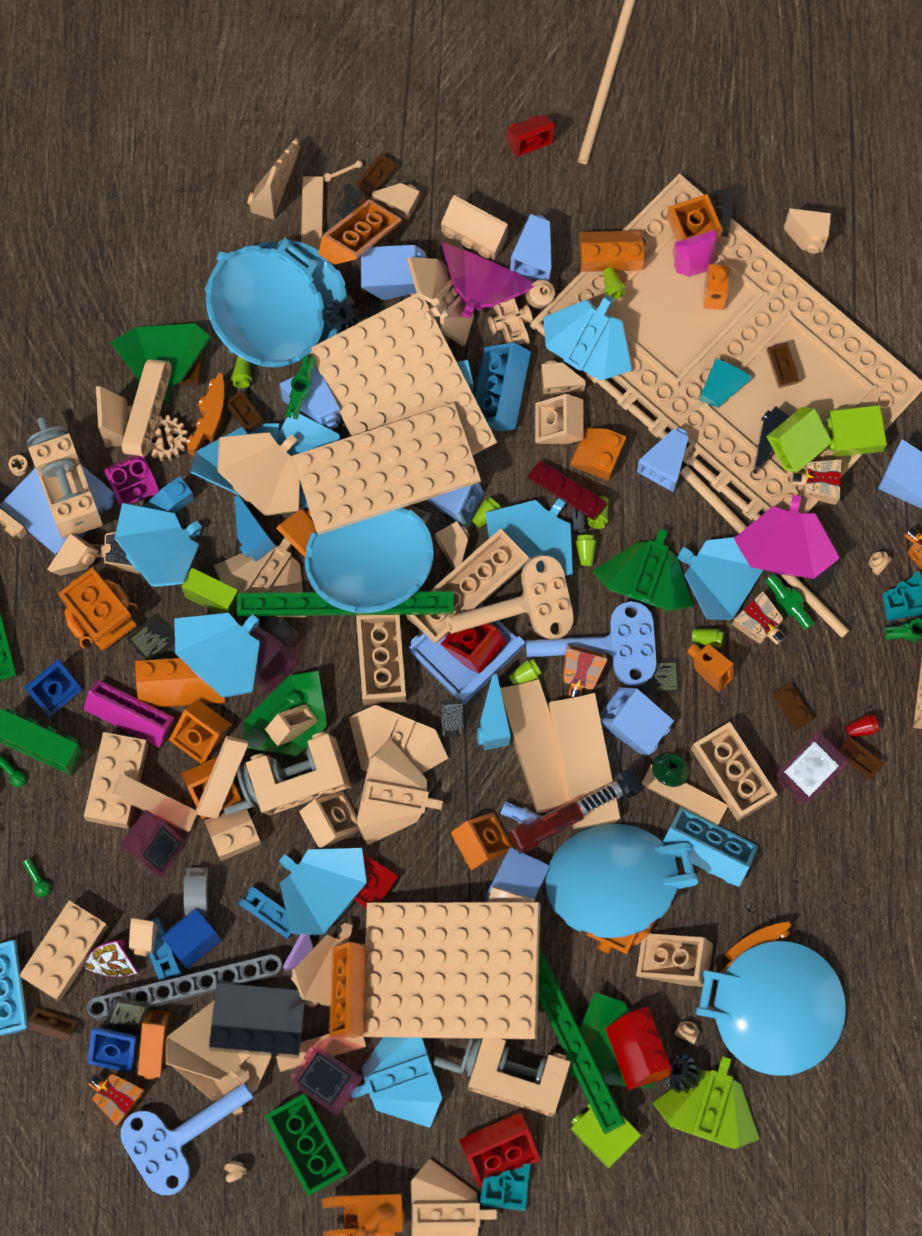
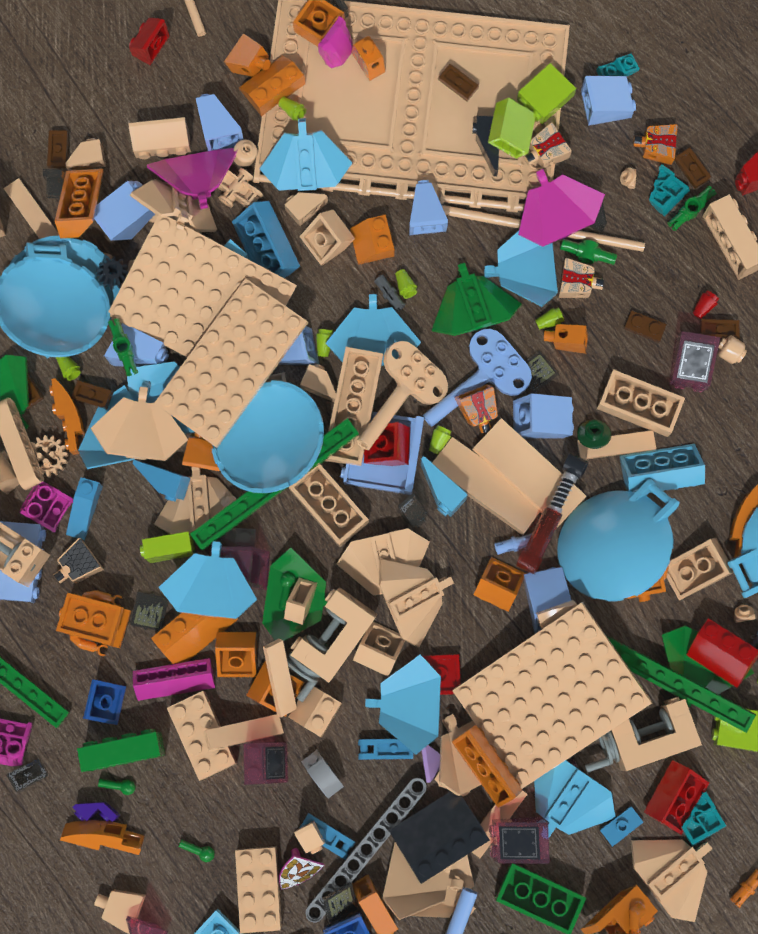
camera: 30 degrees left, 5 degrees up
(73, 556) = (45, 593): light nougat slope -> none
(157, 544) = (102, 540): medium azure panel -> none
(191, 938) = (344, 811): blue slope -> none
(328, 177) = (22, 176): light nougat hinge -> none
(429, 1138) = (621, 826): none -> dark azure plate
(567, 490) = (371, 284): dark red plate -> none
(586, 549) = (416, 317): lime cone -> none
(607, 210) = (247, 57): none -> orange torso
(723, 383) = (425, 126): teal slope -> none
(856, 784) = (731, 349): none -> light nougat head

